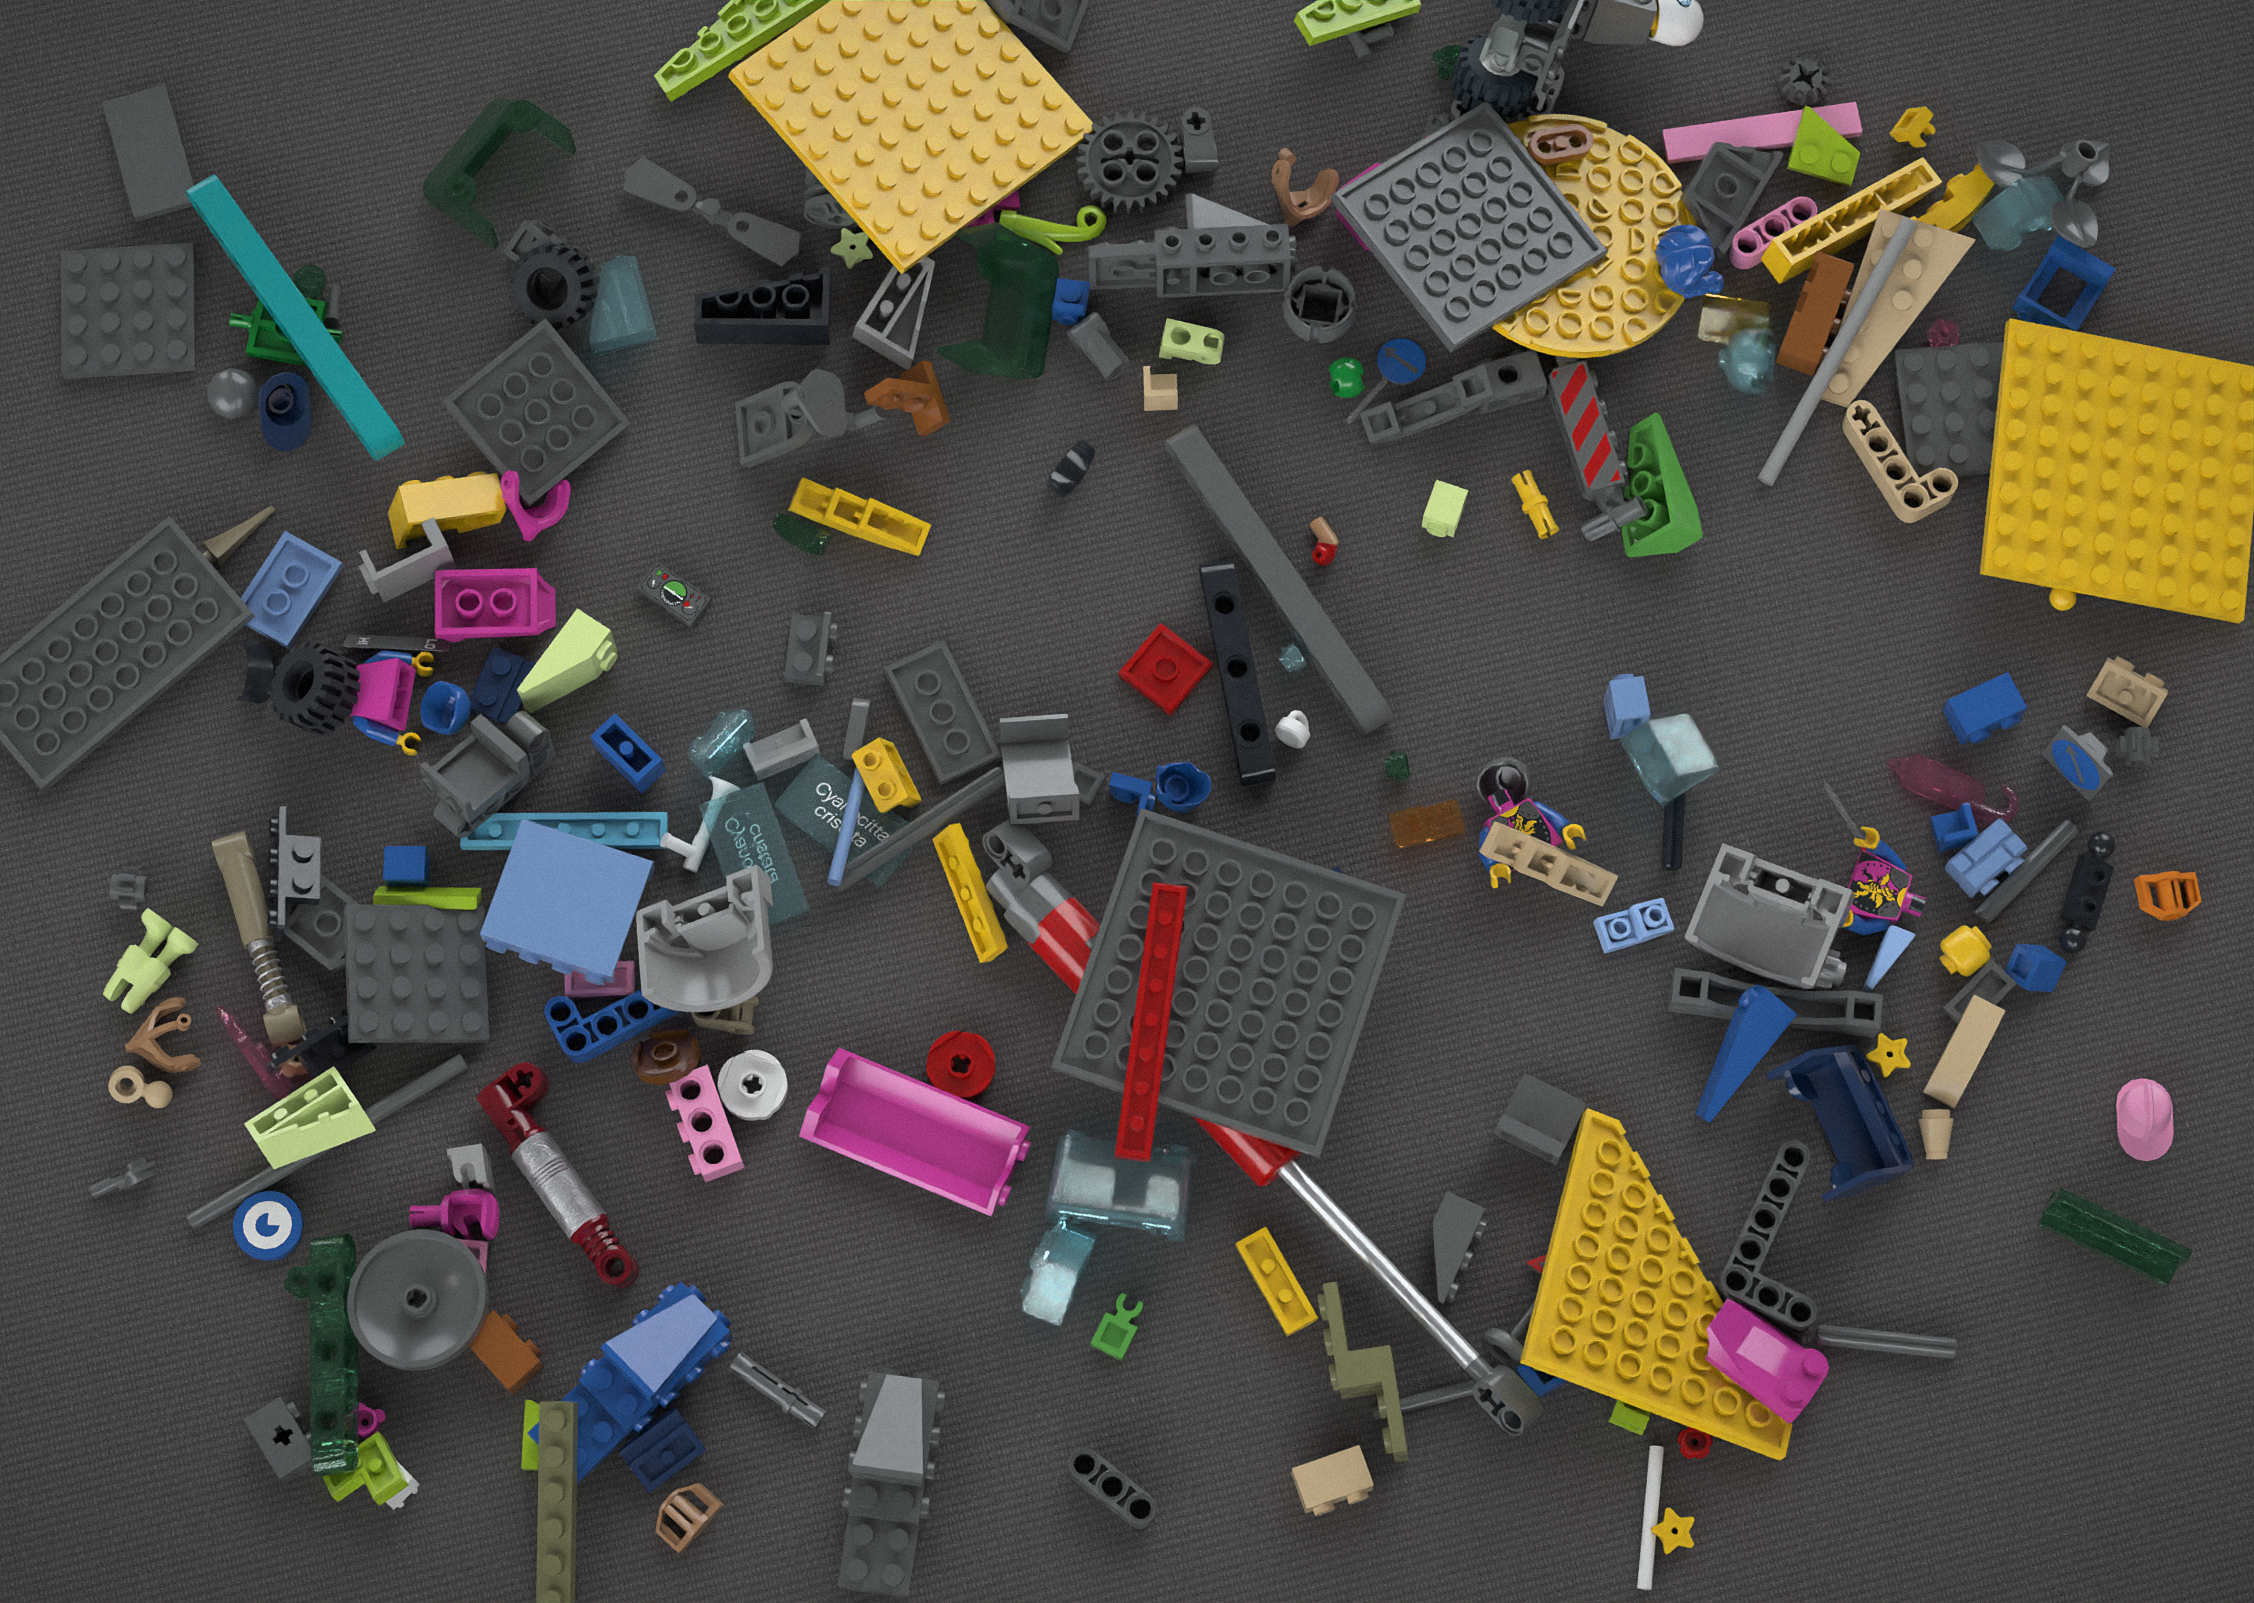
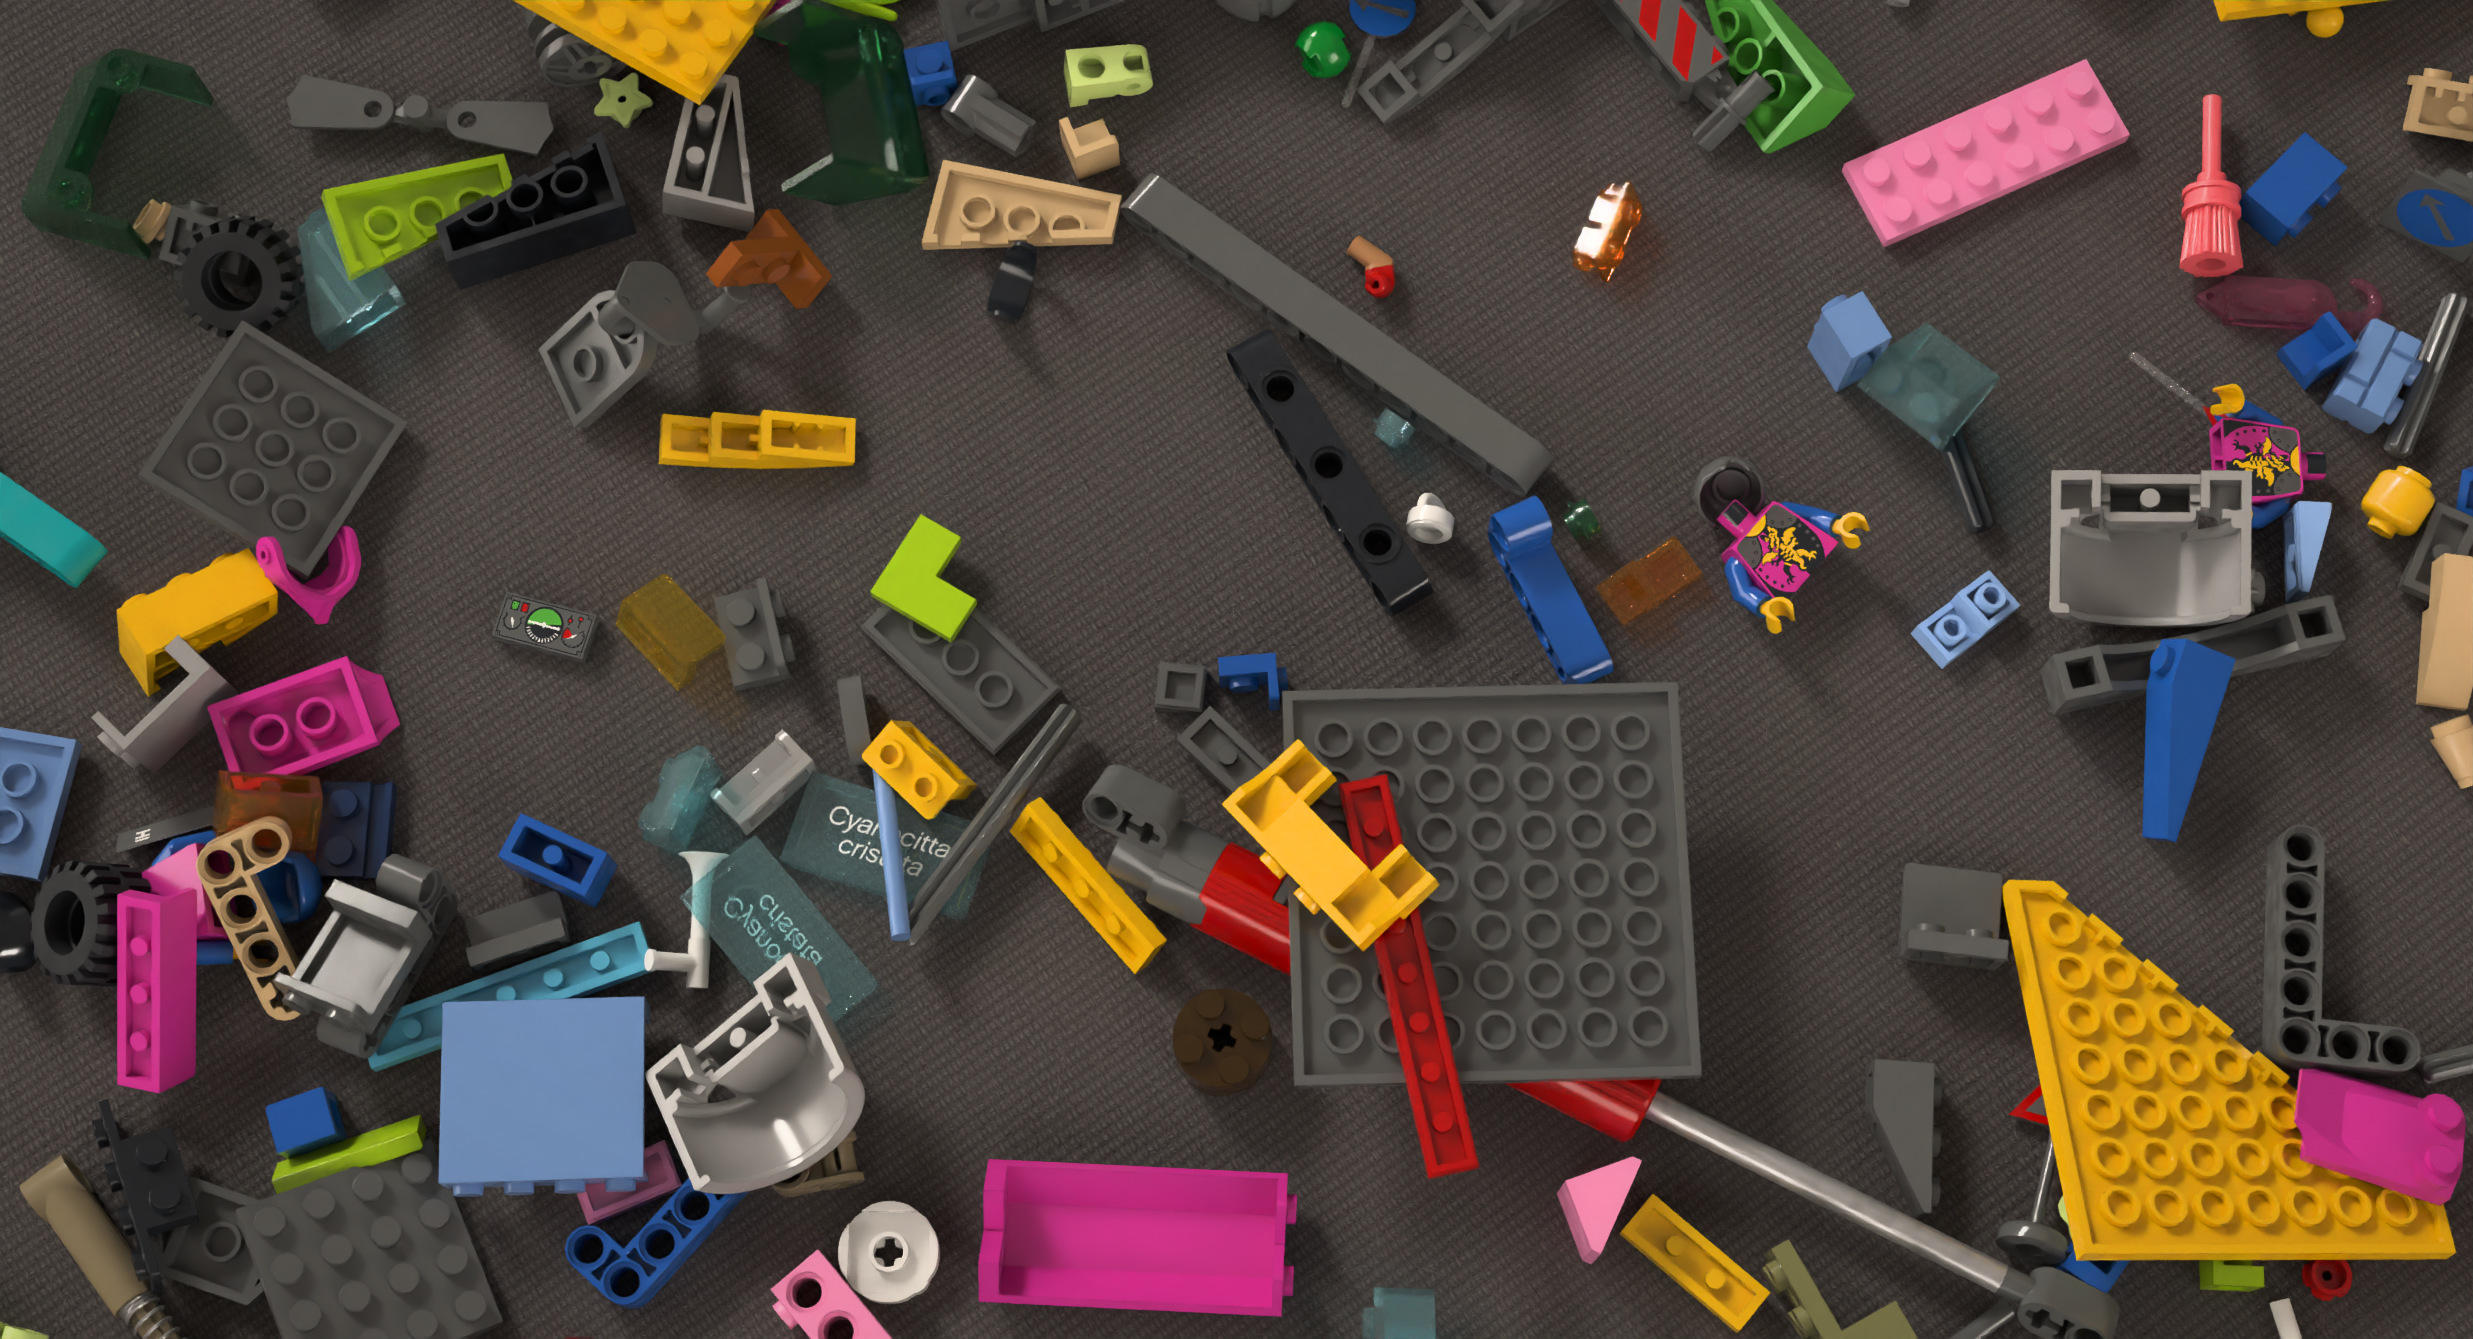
camera: 20 degrees left, 0 degrees up
(341, 745) = (156, 989): none -> dark pink panel
(425, 726) = (264, 923): none -> tan beam
(450, 653) = (250, 796): none -> clear orange brick
(507, 224) = (152, 221): none -> tan plate
(570, 662) = (434, 766): yellowish green slope -> none
(585, 792) = (517, 933): none -> dark grey panel
(666, 1056) = (756, 1257): reddish brown tile -> none
(673, 278) = (399, 212): none -> lime wing
(755, 624) = (668, 629): none -> clear yellow panel
(802, 534) = (689, 489): clear green helmet -> none
(928, 651) = (913, 582): none -> lime tile
(965, 1046) = (1156, 1095): red plate -> none
(1020, 1007) = (1210, 1016): none -> dark brown brick
(1038, 769) = (1120, 689): dark grey panel -> none
(1083, 413) = (998, 207): none -> tan wing
(1096, 842) = (1221, 751): none -> dark grey plate
(1111, 911) = (1330, 876): none -> yellow bracket
(1118, 1191) = (1413, 1226): clear light blue windscreen -> none
(1165, 669) = (1232, 500): red tile -> none
(1181, 786) = (1315, 645): blue hair -> none
(1225, 1216) = (1594, 1202): none -> bright pink slope
(1353, 807) = (1546, 593): none -> blue beam
(1444, 509) = (1512, 172): yellowish green brick -> none
(1506, 563) = (1617, 213): none -> clear orange hinge
(1535, 504) = (1623, 128): yellow pin -> none
(1548, 864) = (1832, 577): tan slope -> none
(1783, 608) = (1985, 153): none -> bright pink plate
(1852, 1117) = (2351, 774): dark blue windscreen -> none
(1888, 1064) = (2347, 679): yellow plate -> none
(1922, 701) = (2211, 207): none -> coral piece

